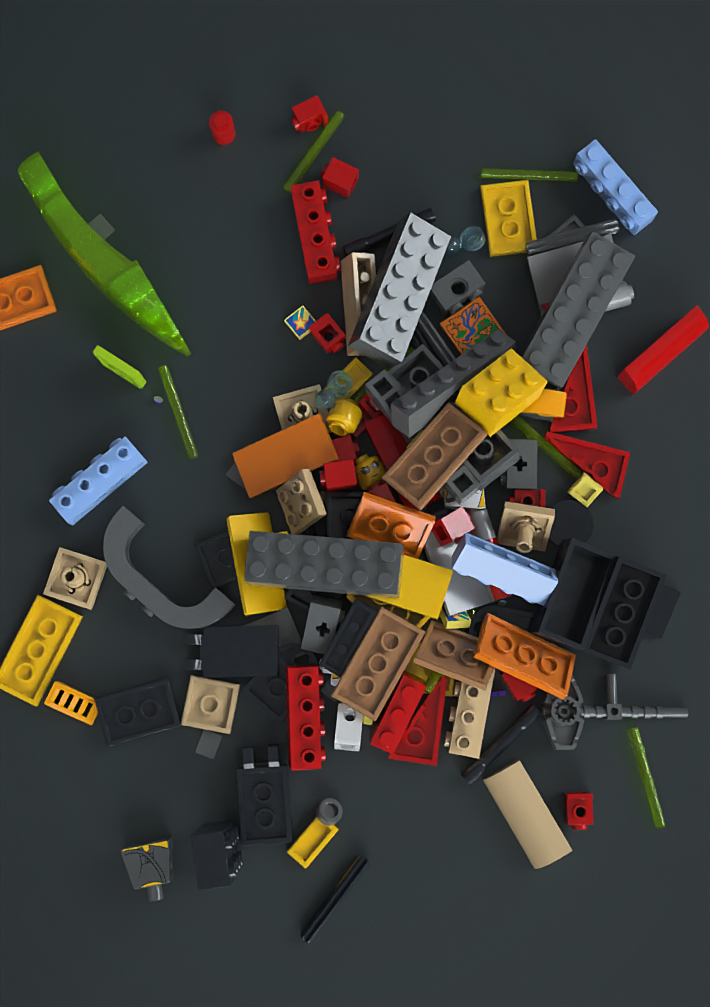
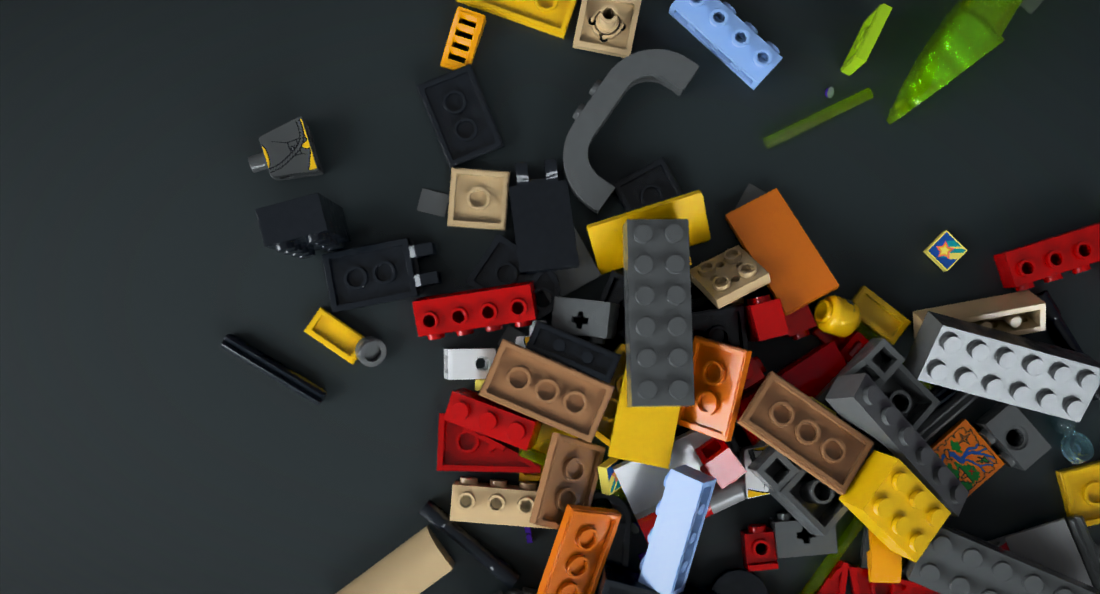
camera: 85 degrees right, 5 degrees up
(287, 406) = (844, 262): tan plate -> none
(326, 326) = (944, 280): red brick -> none
(326, 398) = (858, 291): clear light blue plate -> none
(369, 471) = (775, 354): yellow head -> none
(518, 688) = (537, 557): red brick -> none
(524, 531) = (724, 548): tan plate -> none

